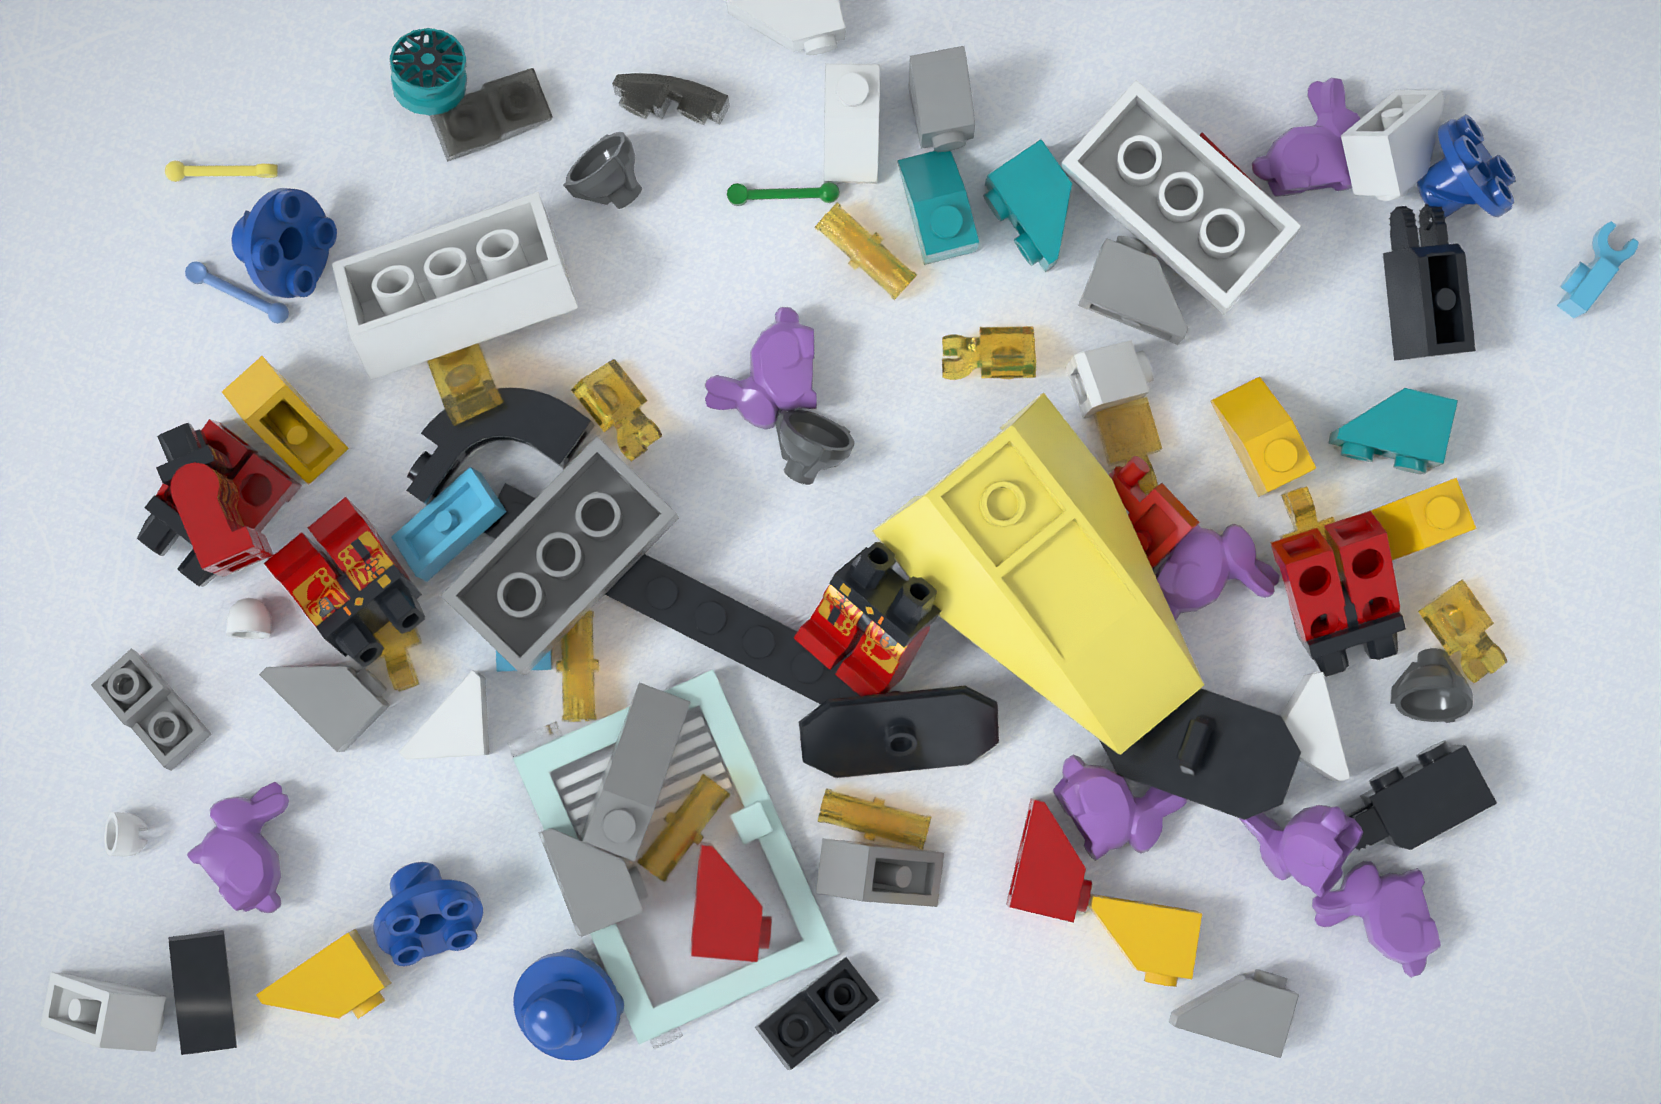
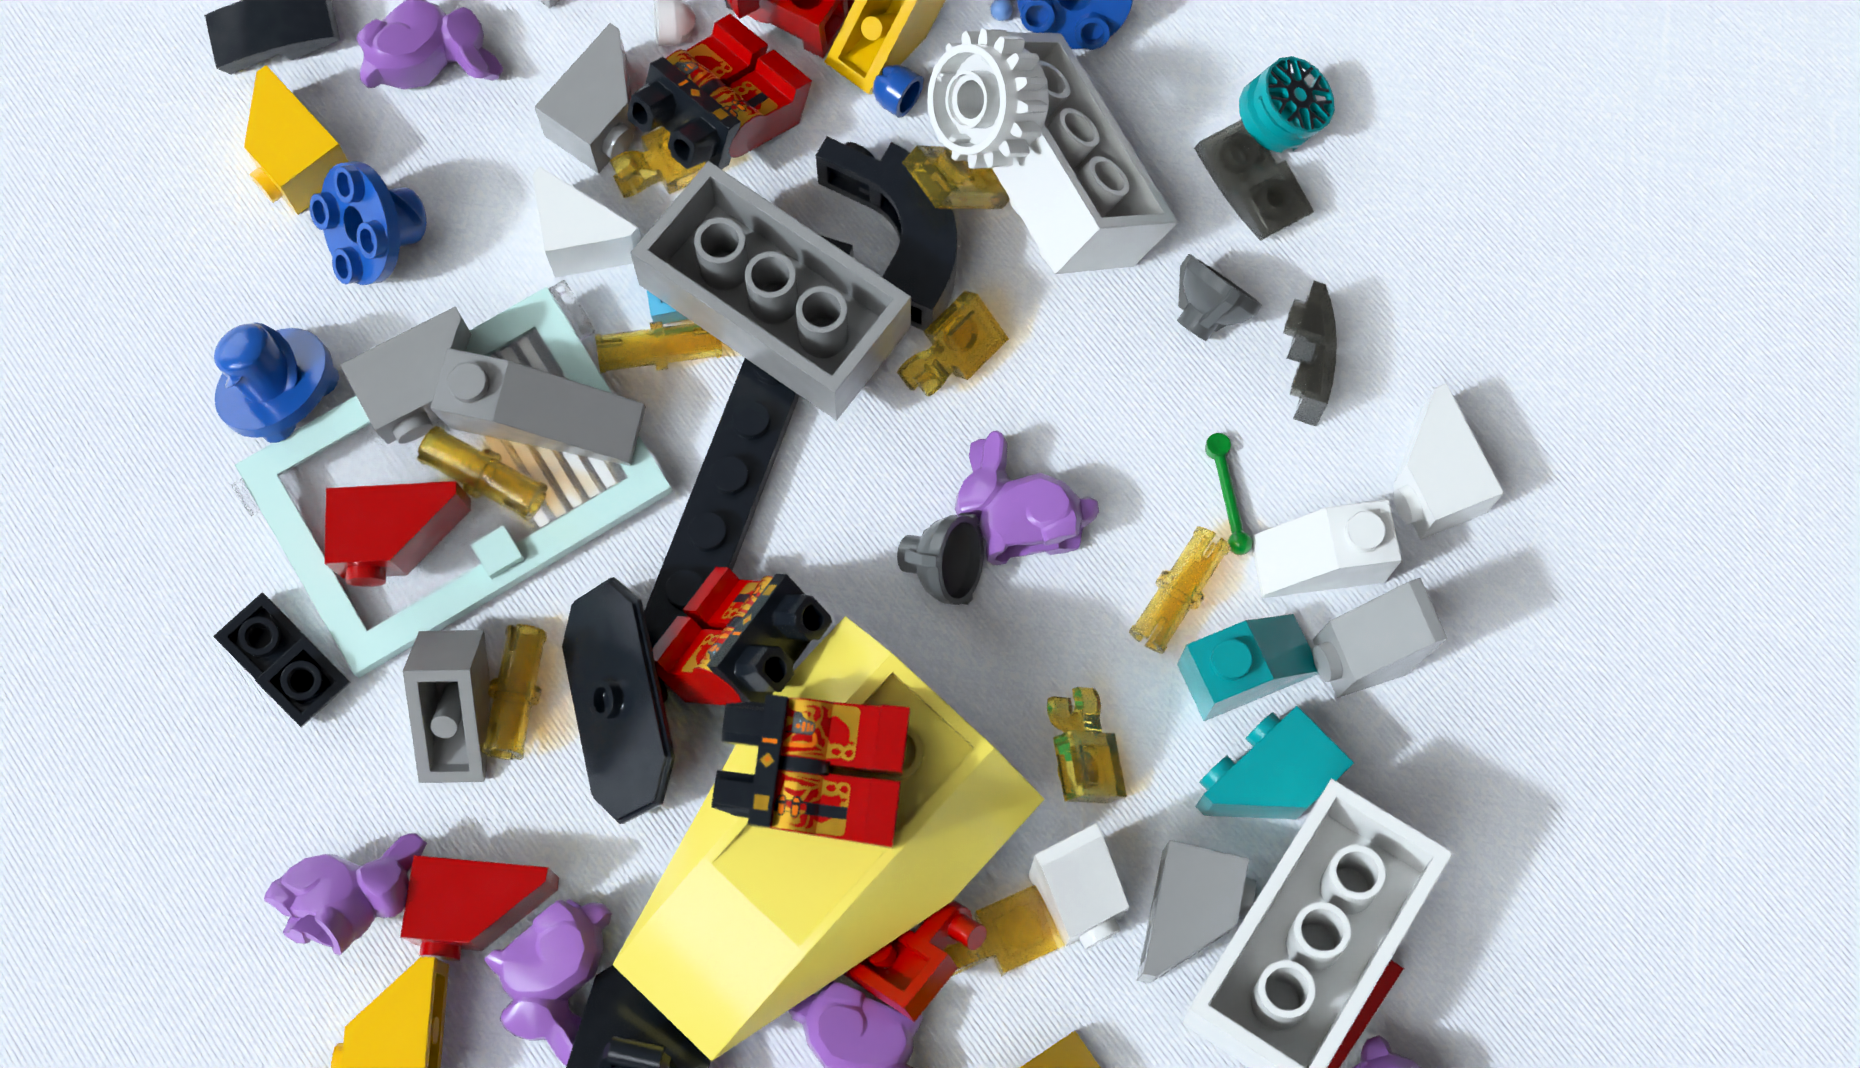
camera: 90 degrees right, 15 degrees down
(355, 418) = (897, 89): none -> blue hinge
(423, 340) = (988, 98): none -> white gear
(448, 524) = (799, 190): medium azure plate -> none
(1016, 563) = (795, 763): none -> hips
(1034, 971) = (338, 899): none -> medium lavender animal

